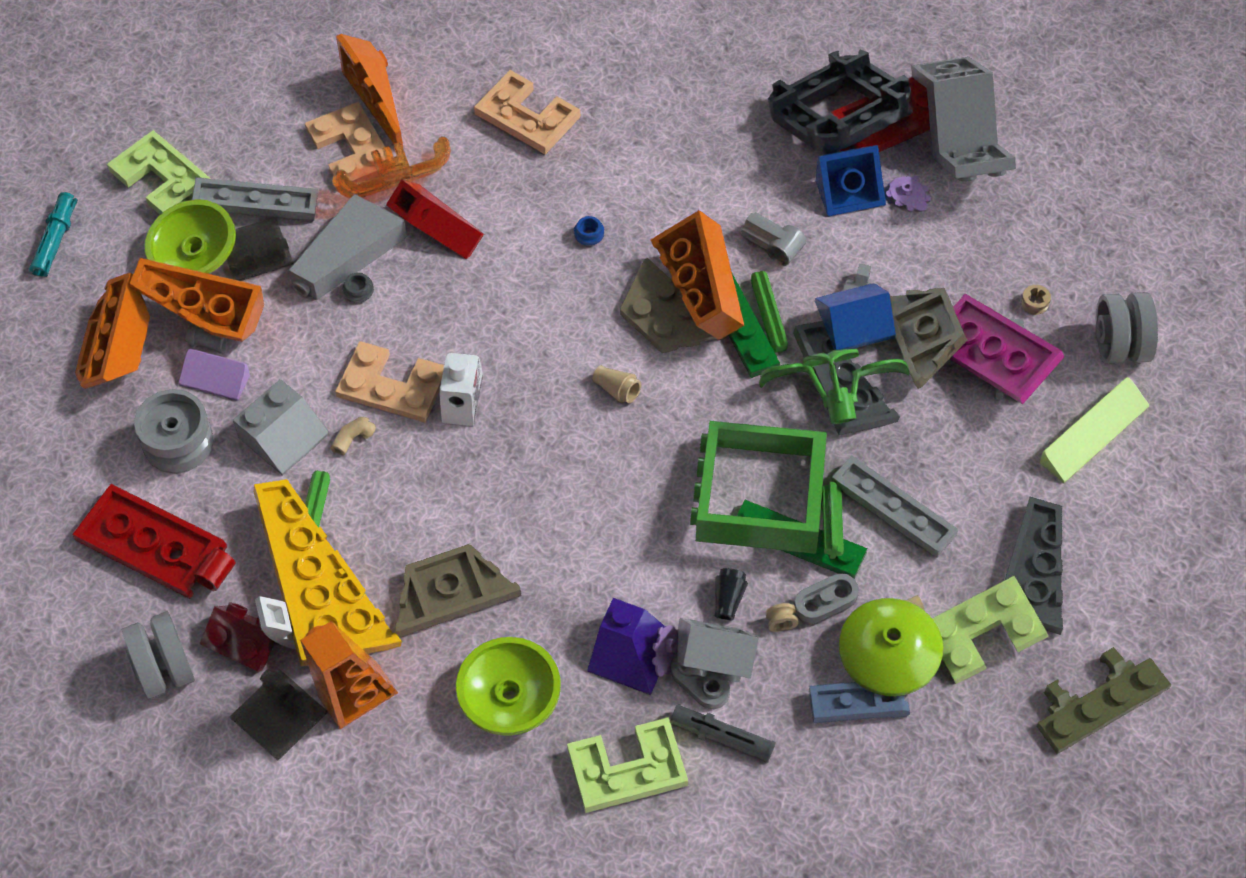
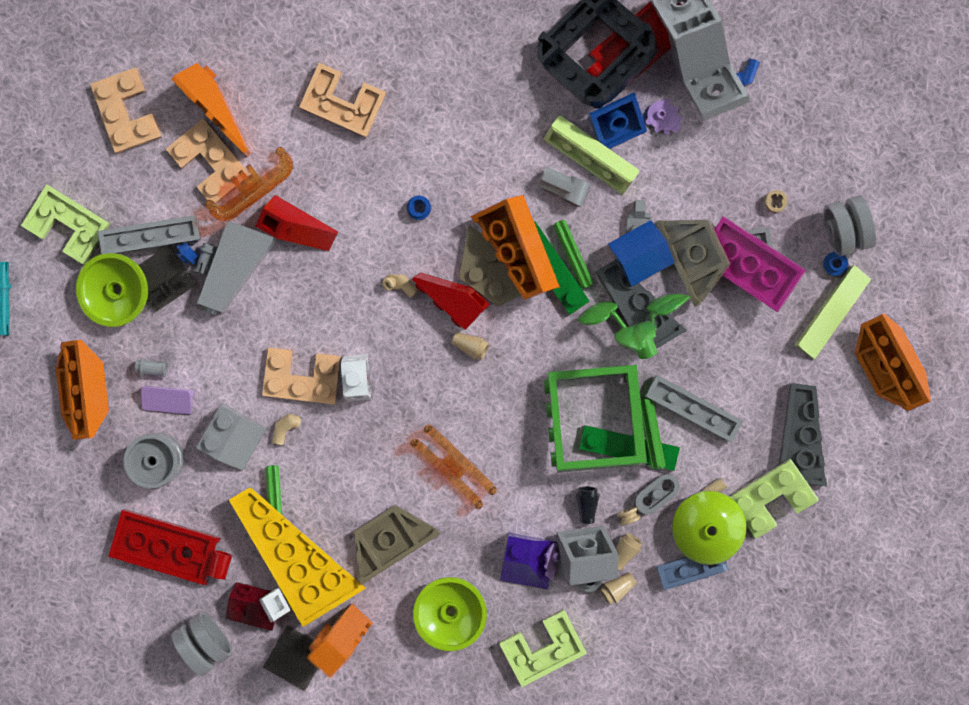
camera: 10 degrees left, 30 degrees up
(206, 300) = (144, 349): orange wedge -> none
(259, 98) = (121, 130): none -> light nougat plate
(293, 226) = (186, 253): none -> blue plate
(316, 228) = (205, 258): none -> light grey pin
(358, 287) = (253, 298): dark grey plate -> none
(544, 303) = (399, 281): none -> tan arm
(558, 514) = (454, 466): none -> clear orange piece
(613, 326) = (456, 299): none -> red slope
(722, 732) = (600, 610): dark grey pin -> none
(747, 707) = (617, 588): none -> tan cone
(770, 660) = (627, 549): none -> tan cone
(812, 213) = (591, 154): none -> yellowish green slope
(1022, 166) = (748, 75): none -> blue arm
(1101, 384) = (828, 267): none -> blue plate
(1125, 690) = (844, 547): olive hinge -> none
(1164, 492) = (892, 363): none -> orange wedge

